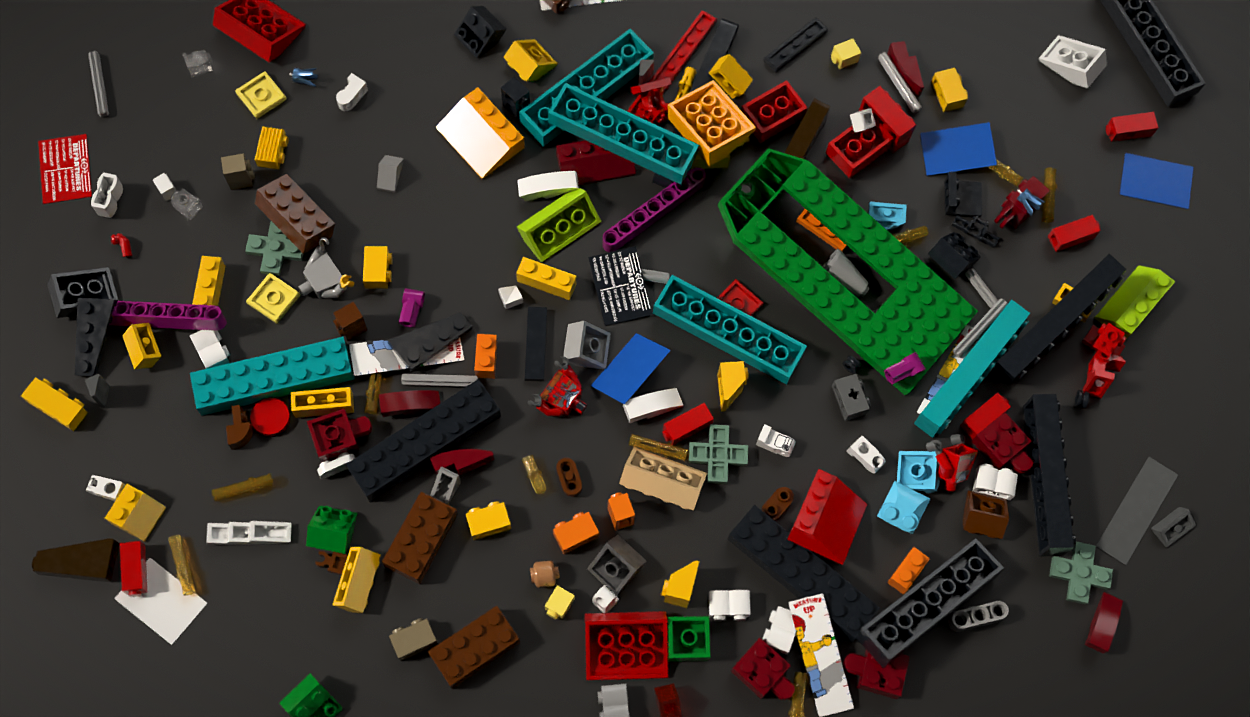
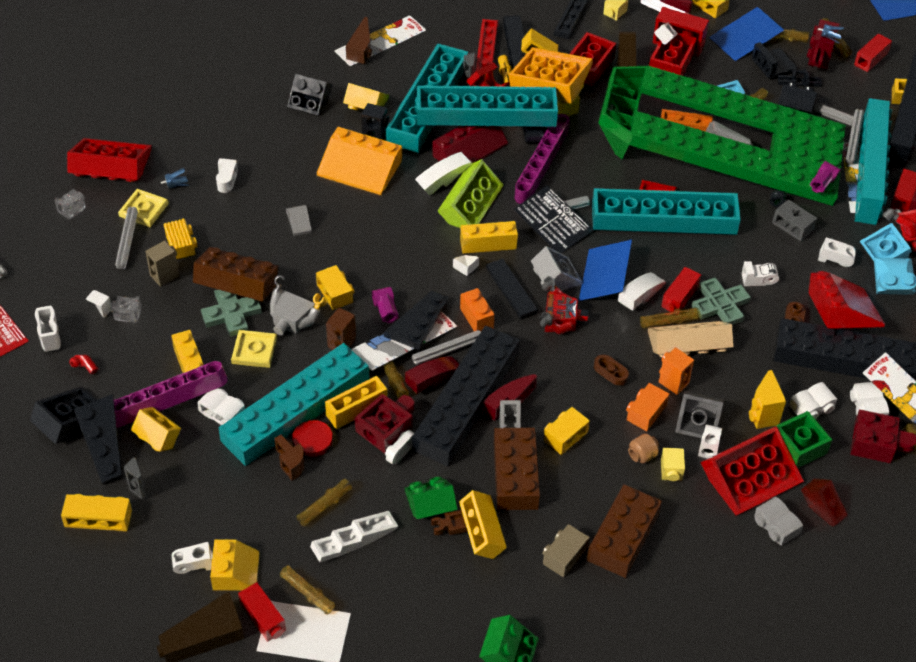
camera: 25 degrees left, 20 degrees down
(226, 124) = (126, 238): none -> light grey axle
(534, 474) = (579, 380): clear yellow axle -> none
(731, 381) = (693, 244): yellow slope -> none

